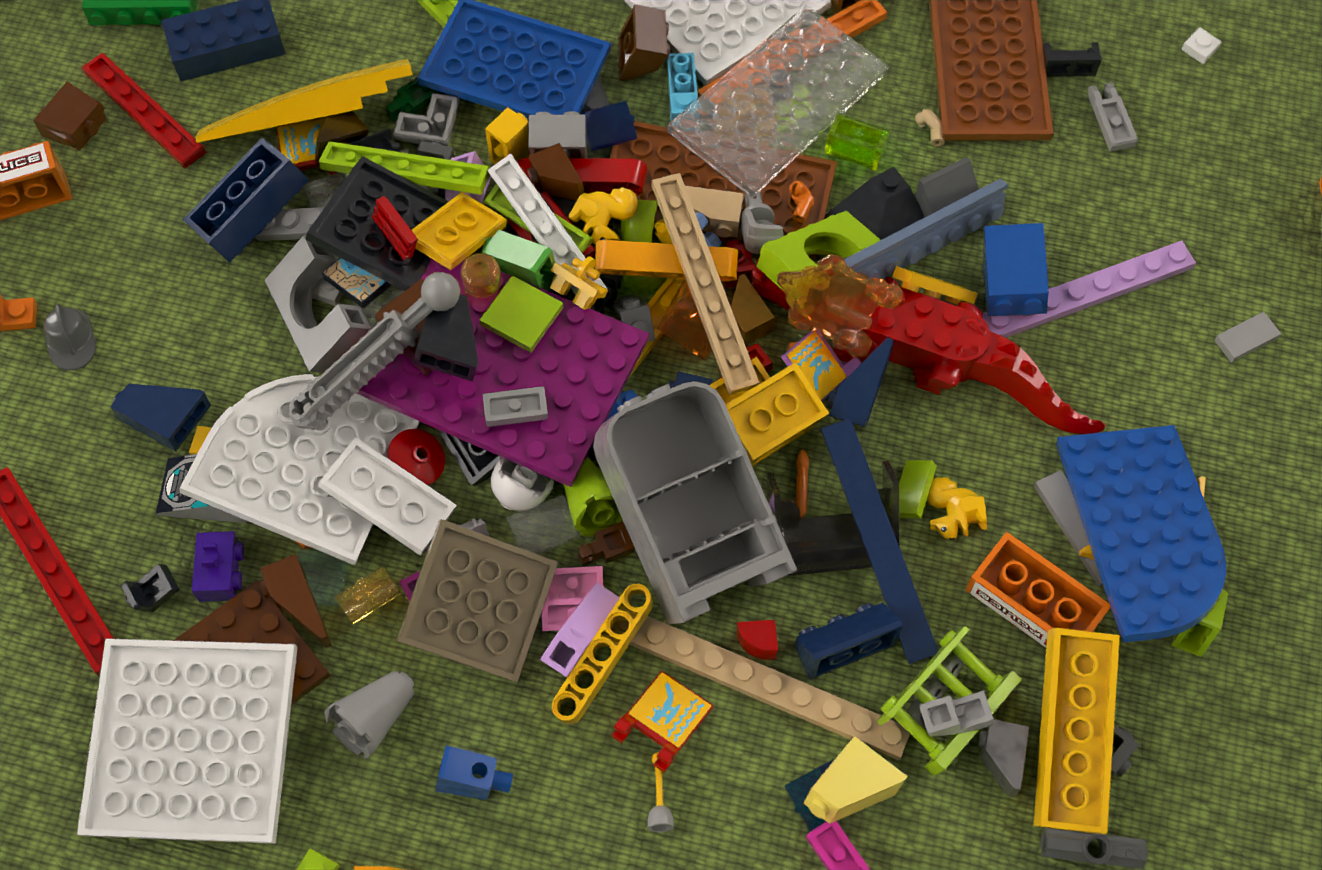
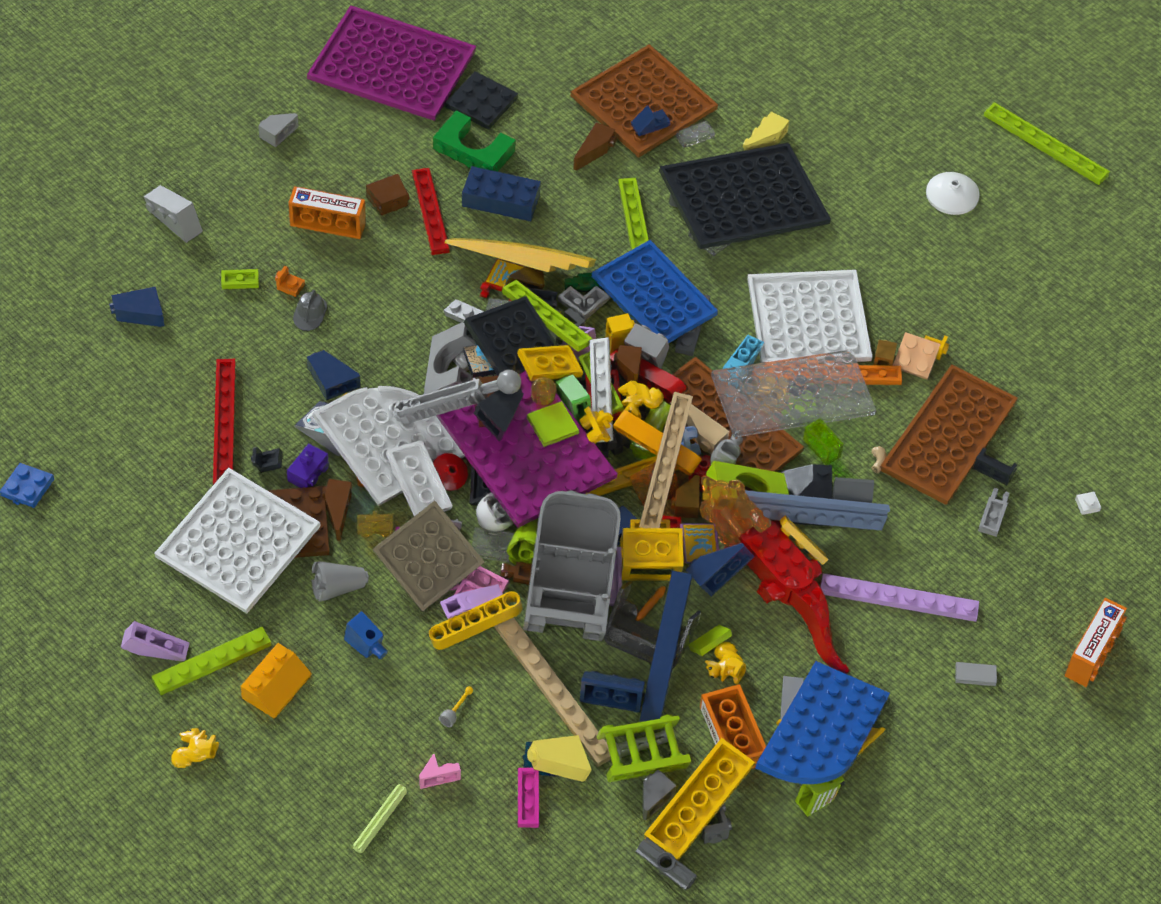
camera: 30 degrees right, 10 degrees down
(246, 199) = (450, 287): dark blue brick -> none
(394, 228) = (515, 342): red tile -> none
(515, 406) = (514, 467): light grey plate -> none
(609, 126) = (684, 356): clear blue piece -> none
(634, 313) = (620, 463): dark grey bracket -> none
(642, 42) = (739, 320): reddish brown slope -> none
(666, 715) = (487, 671): flag -> none
(758, 638) = (566, 663): red brick -> none
(803, 200) = (765, 455): orange arm -> none
(958, 715) = (636, 753): light grey slope -> none
(1015, 269) = (857, 557): blue slope -> none

